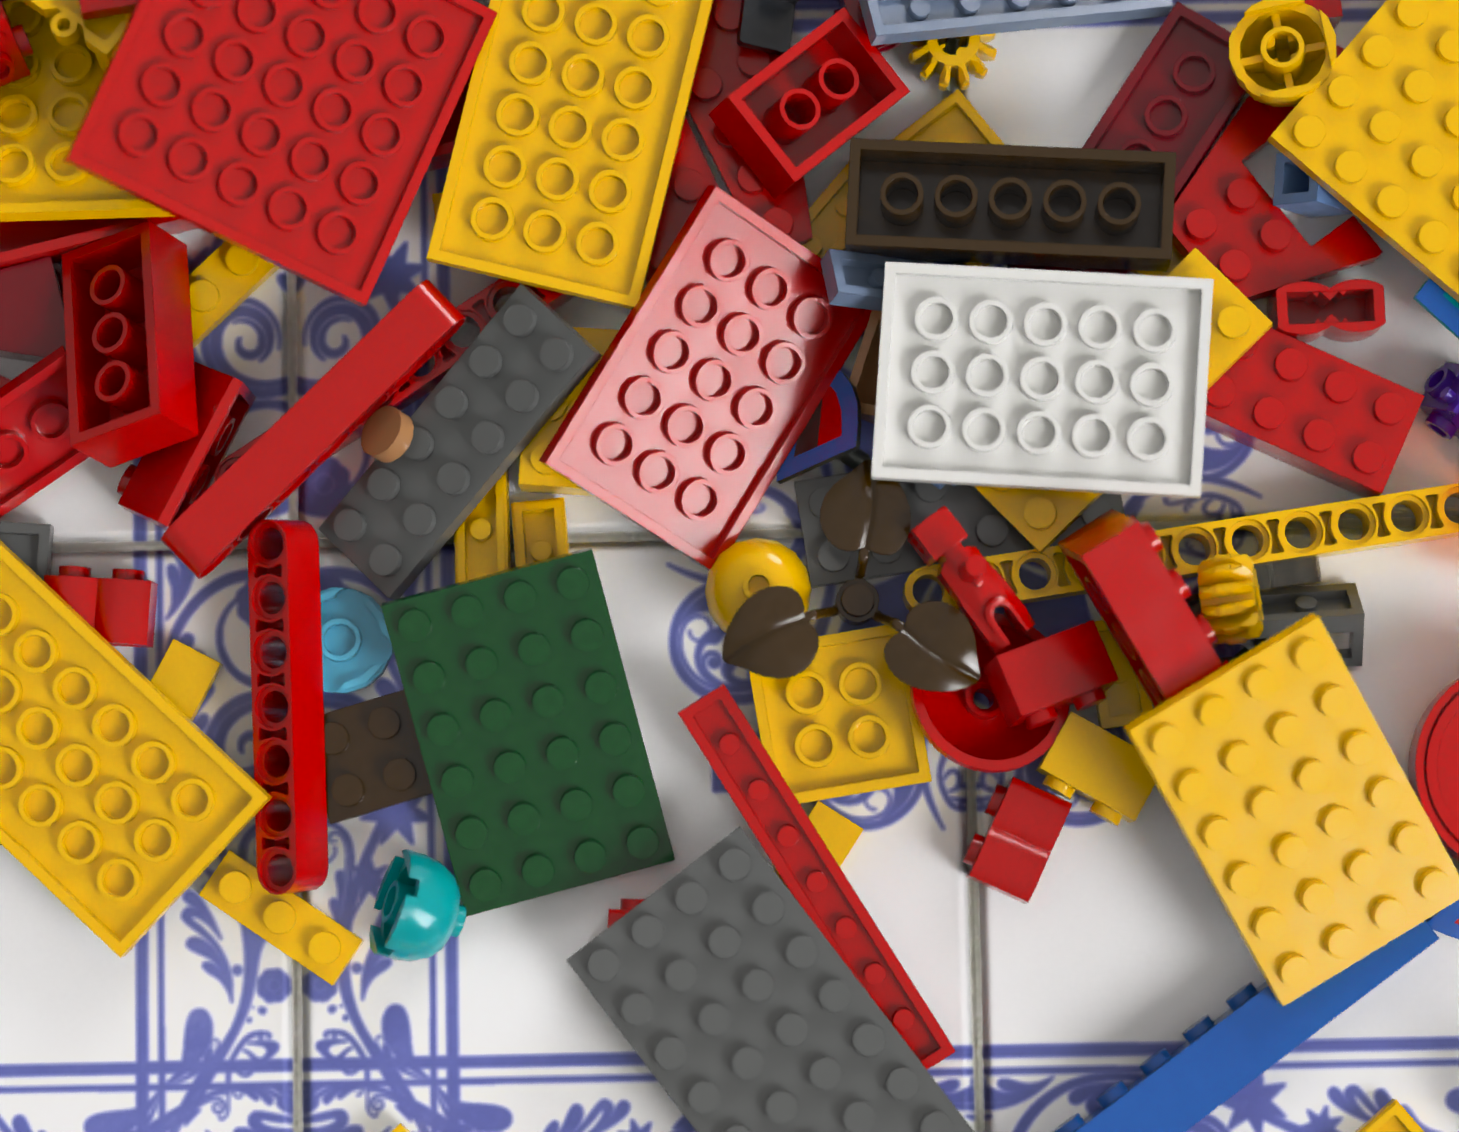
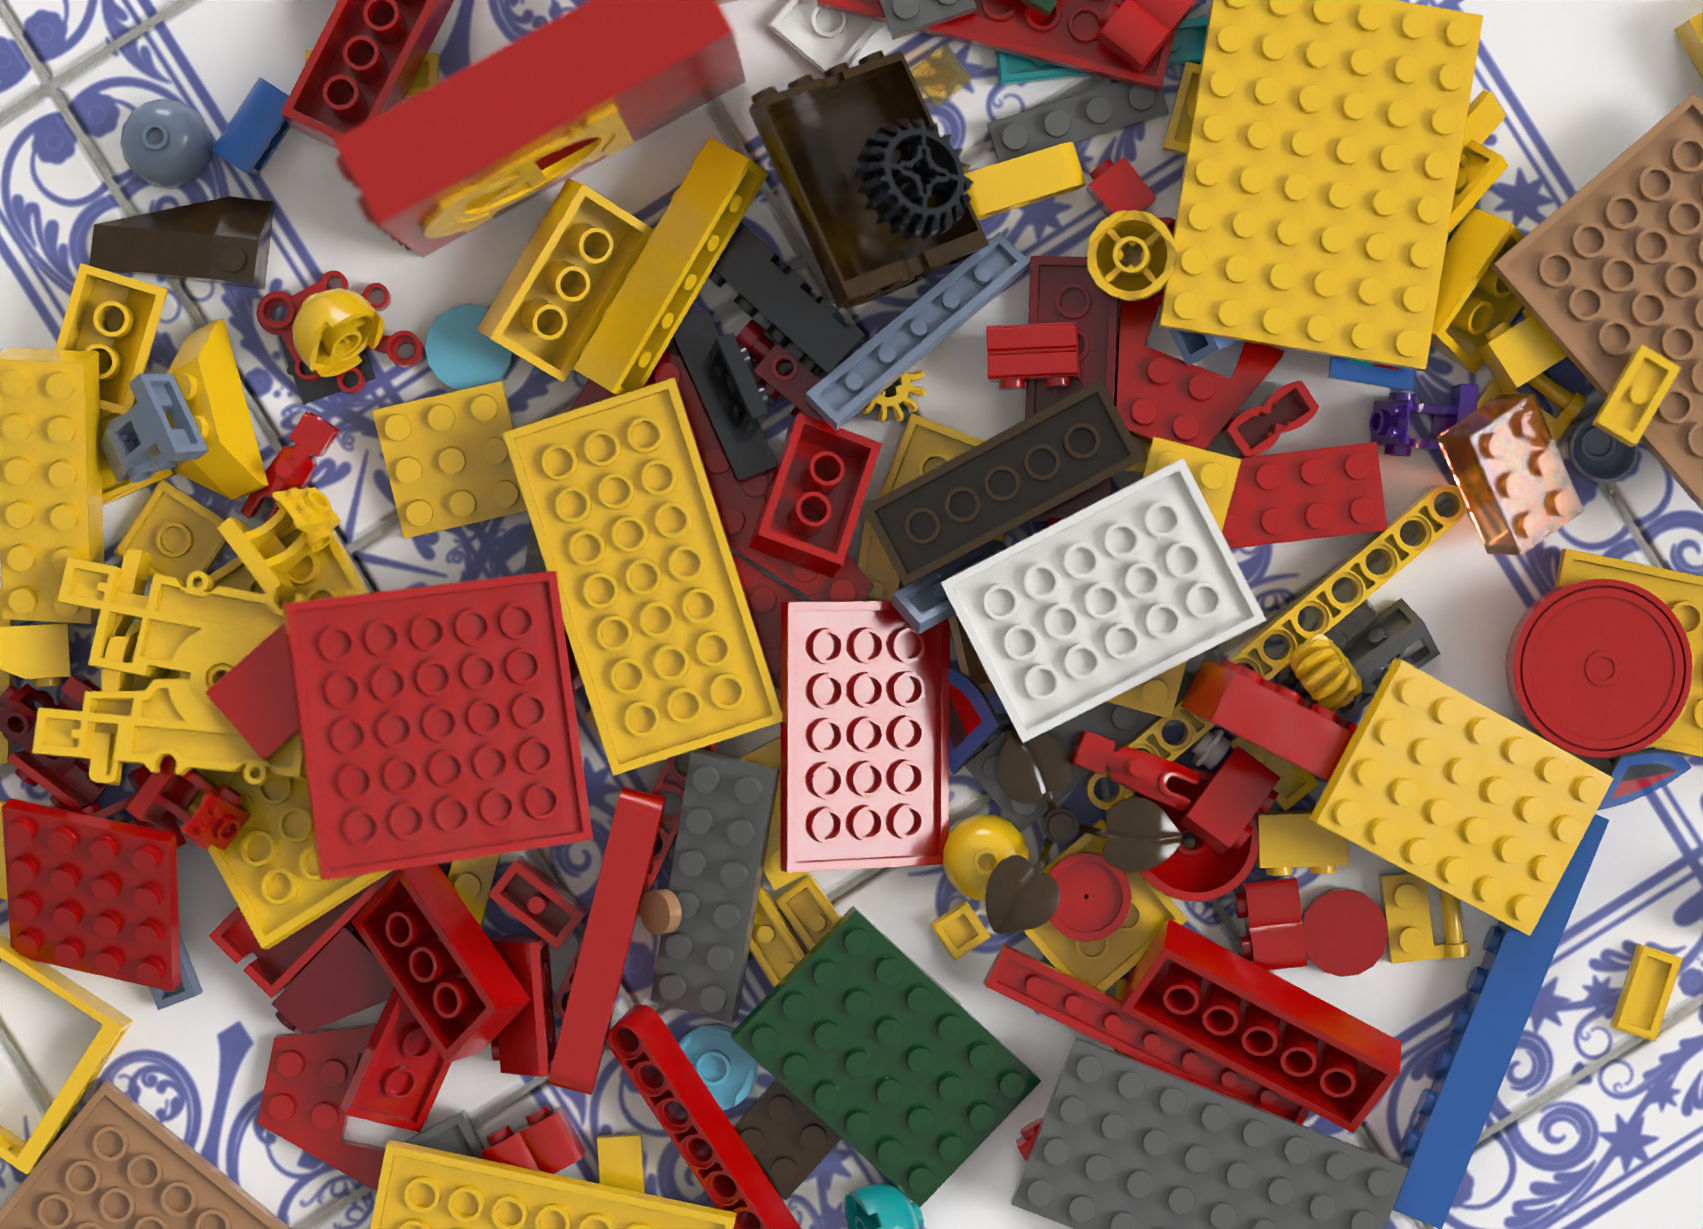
camera: 30 degrees left, 5 degrees up
(265, 352) = (538, 902): none -> red brick
(685, 652) = (960, 930): none -> yellow tile
(847, 713) = (1106, 902): none -> red piece
(943, 933) = (1261, 1026): none -> red brick
(1061, 615) = (1210, 748): none -> white plate
(1087, 896) = (1344, 932): none -> red tile
(1120, 96) = (1033, 353): none -> red brick
(1164, 927) = (1409, 920): none -> yellow plate

